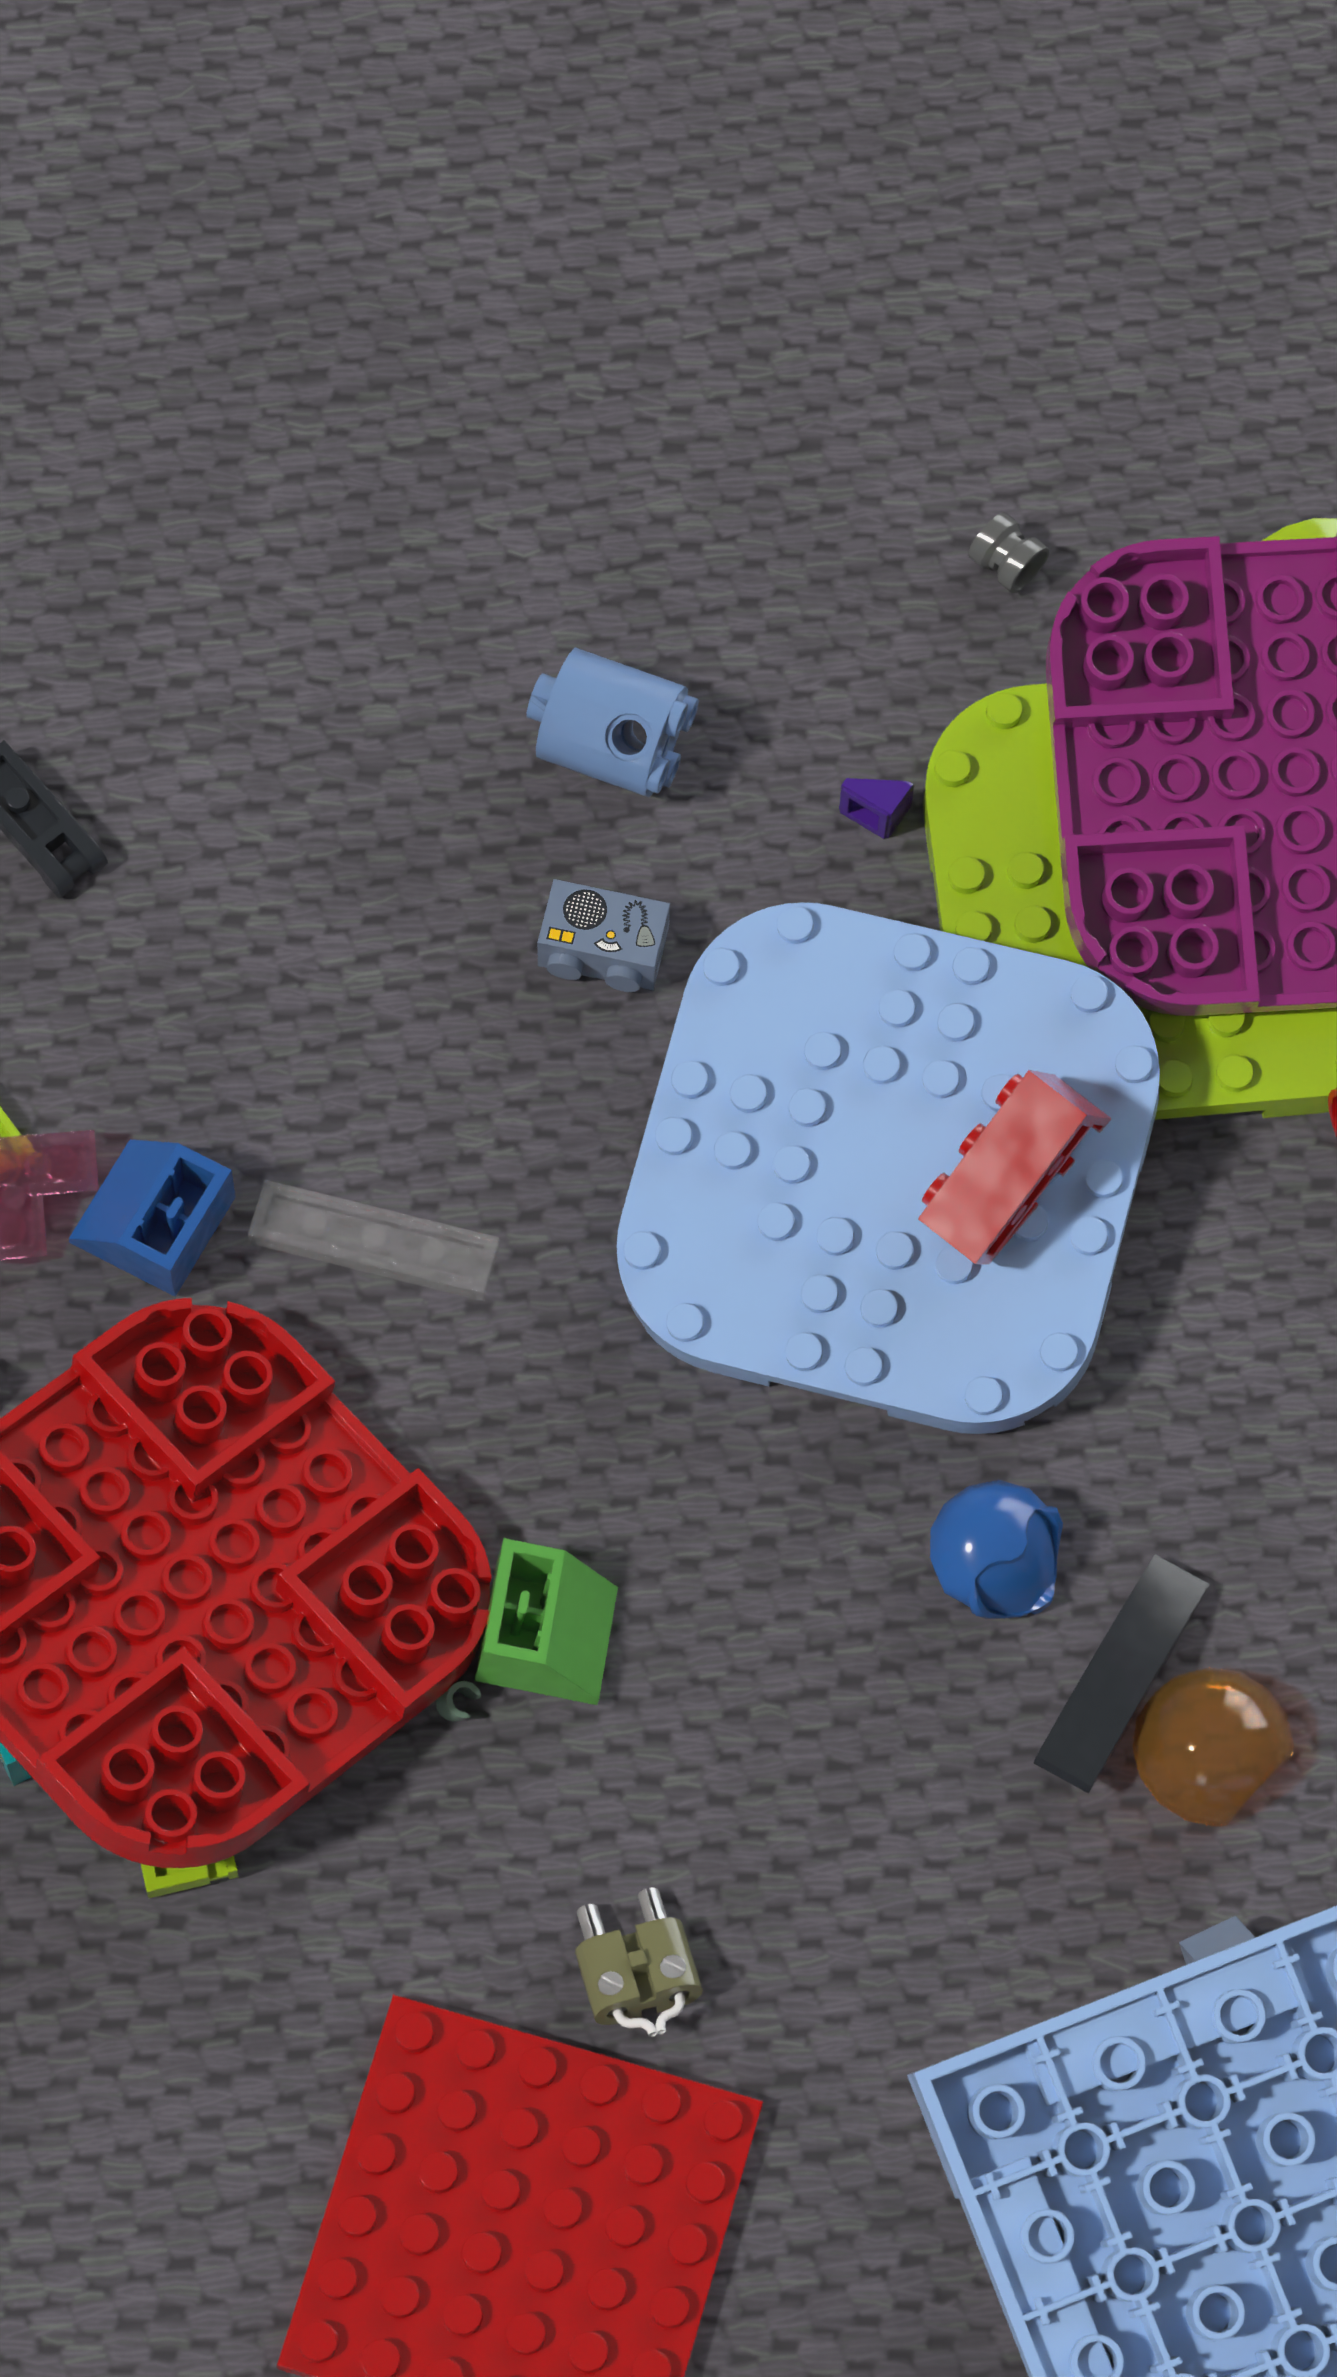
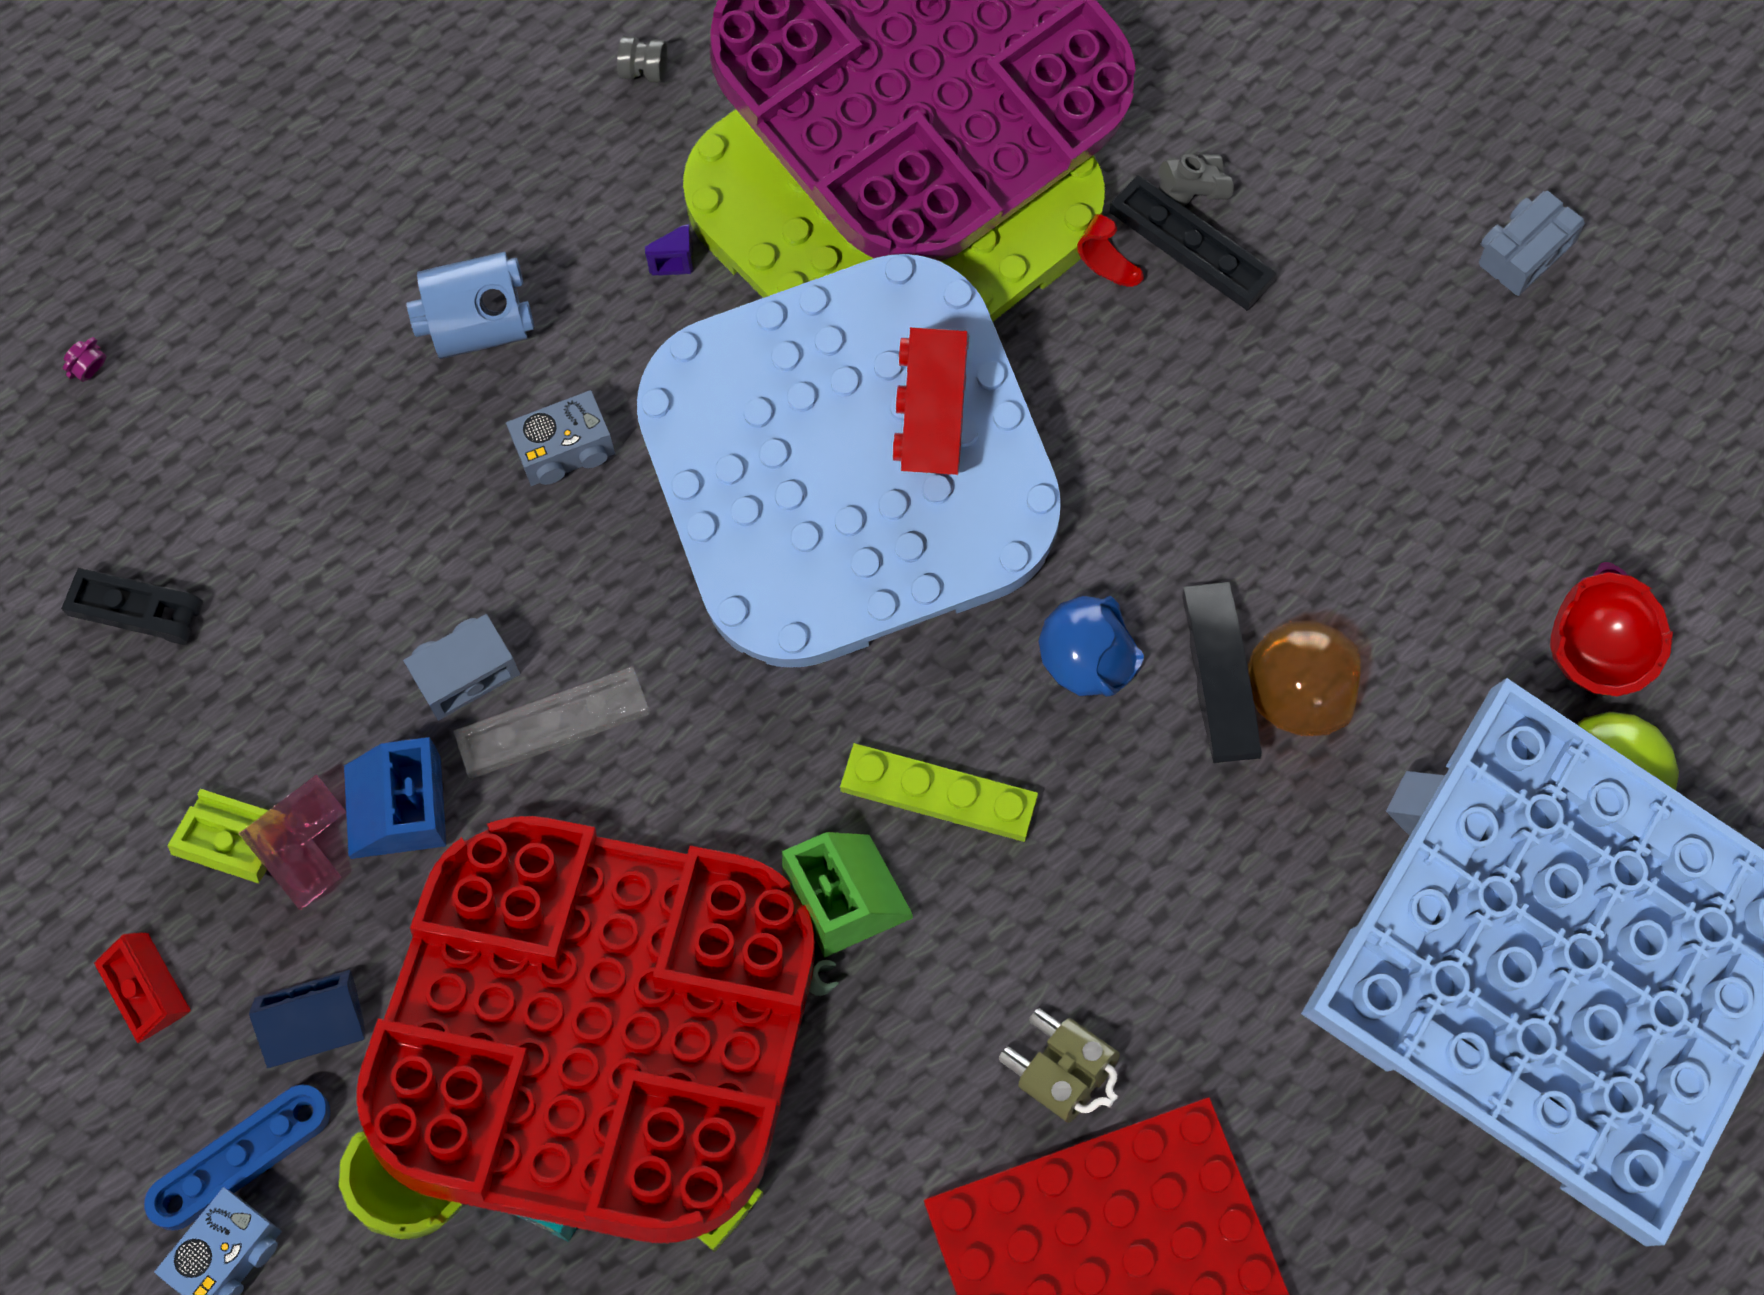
camera: 30 degrees left, 0 degrees up
(164, 508) = (83, 360): none -> magenta plate
(322, 1115) = (461, 666): none -> sand blue brick
(724, 1593) = (939, 792): none -> lime plate

